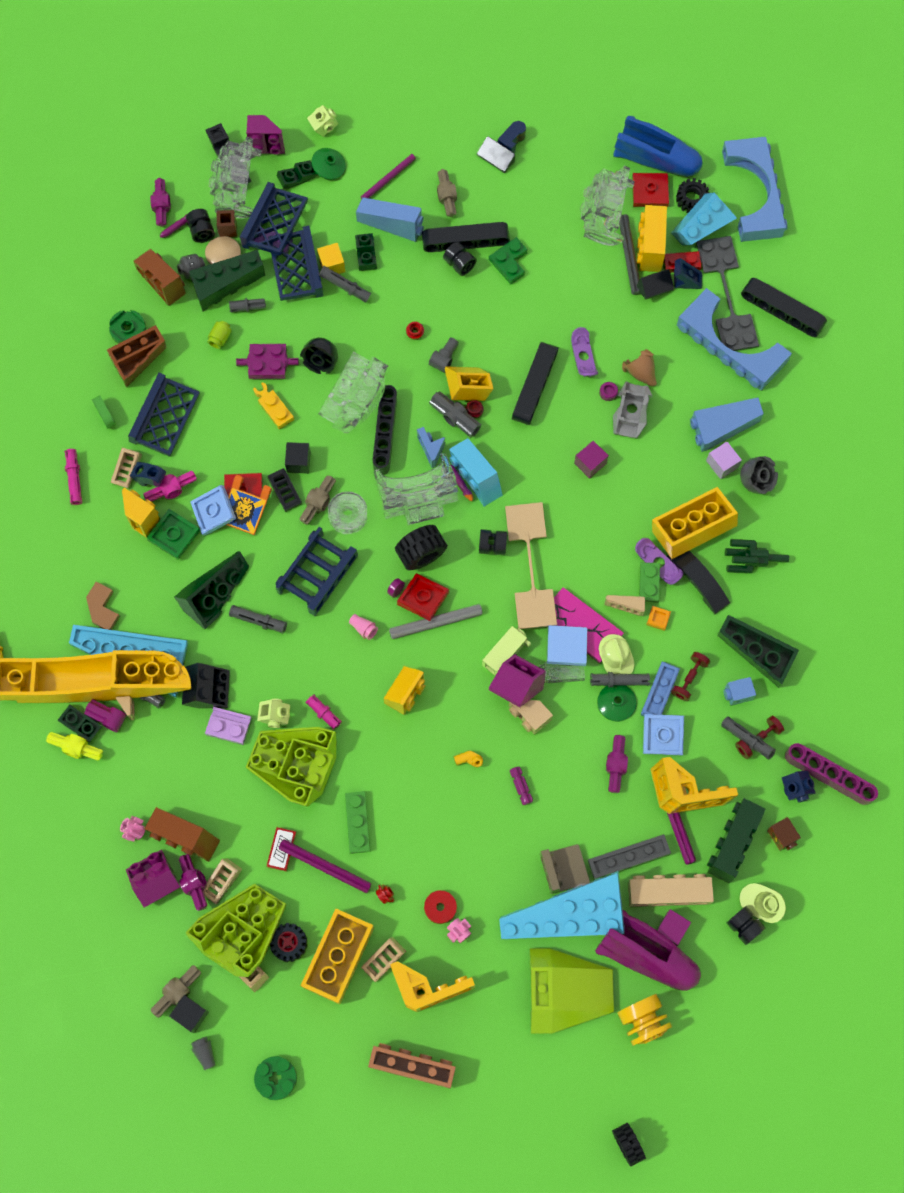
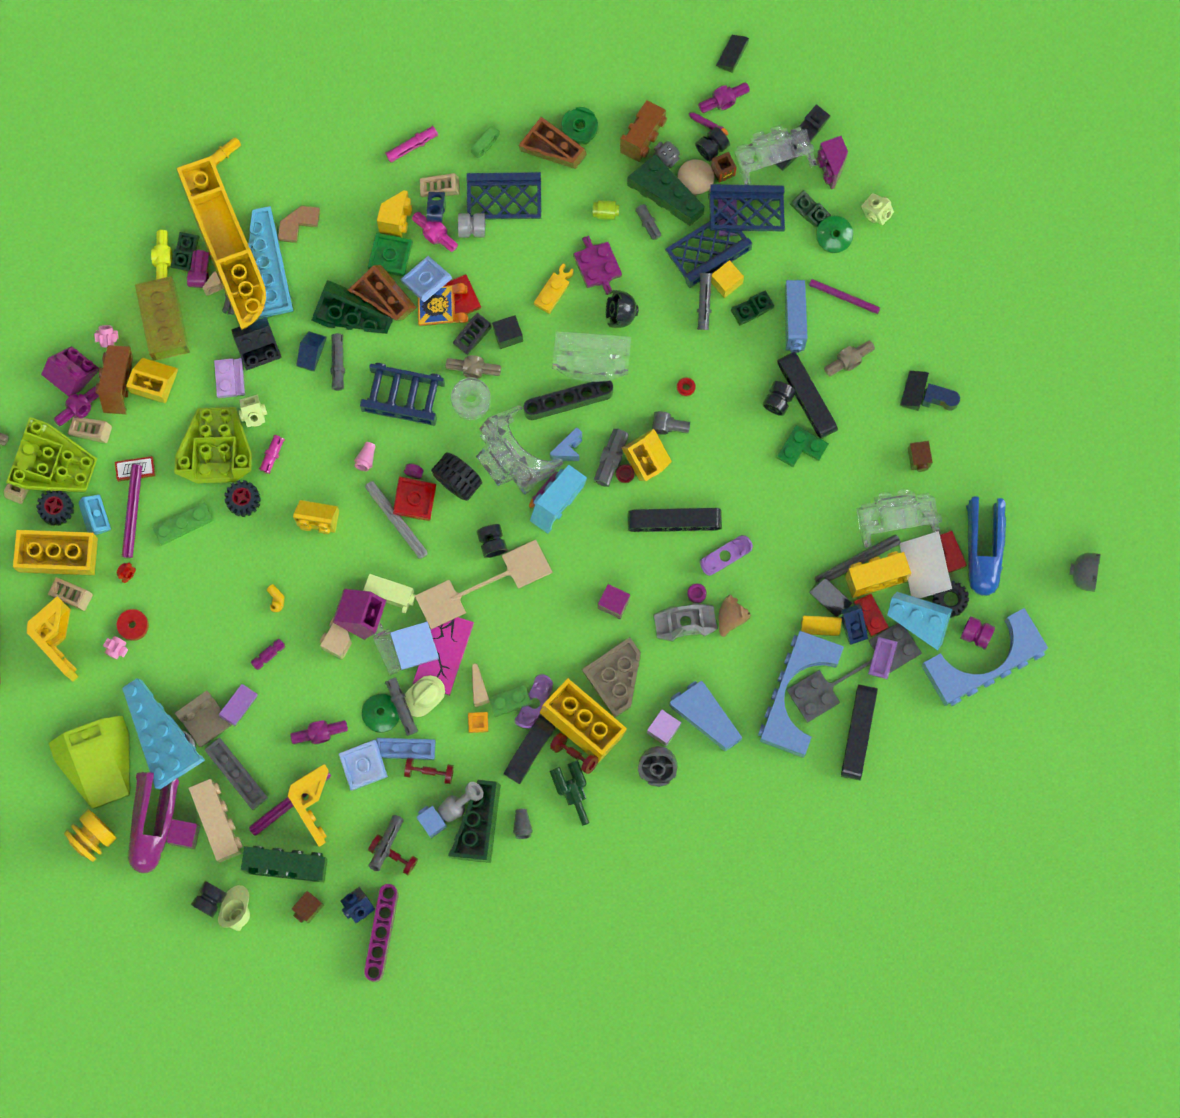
camera: 70 degrees right, 5 degrees up
(121, 180) = (733, 52): none -> black slope
(139, 767) = (162, 318): none -> clear yellow brick
(180, 449) = (471, 225): none -> light grey wheel
(199, 798) = (152, 380): none -> yellow slope
(210, 551) = (383, 292): none -> dark orange wedge
(236, 640) = (310, 350): none -> dark blue slope
(311, 907) = (94, 514): none -> medium azure slope
(352, 749) = (240, 492): none -> black wheel
(557, 171) = (920, 456): none -> reddish brown brick
(561, 830) = (238, 705): none -> medium lavender tile
(657, 194) = (927, 565): none -> white sticker
(660, 484) = (615, 676): none -> dark tan plate
(677, 302) = (821, 625): none -> yellow slope
(710, 84) = (1086, 571): none -> dark grey cylinder
(722, 541) = (559, 742): none -> dark red wheel
(725, 264) = (882, 658): none -> medium lavender tile
(731, 185) = (977, 632): none -> magenta wheel
(734, 665) = (454, 807): none -> light grey piece
(770, 612) = (522, 824): none -> dark grey cone

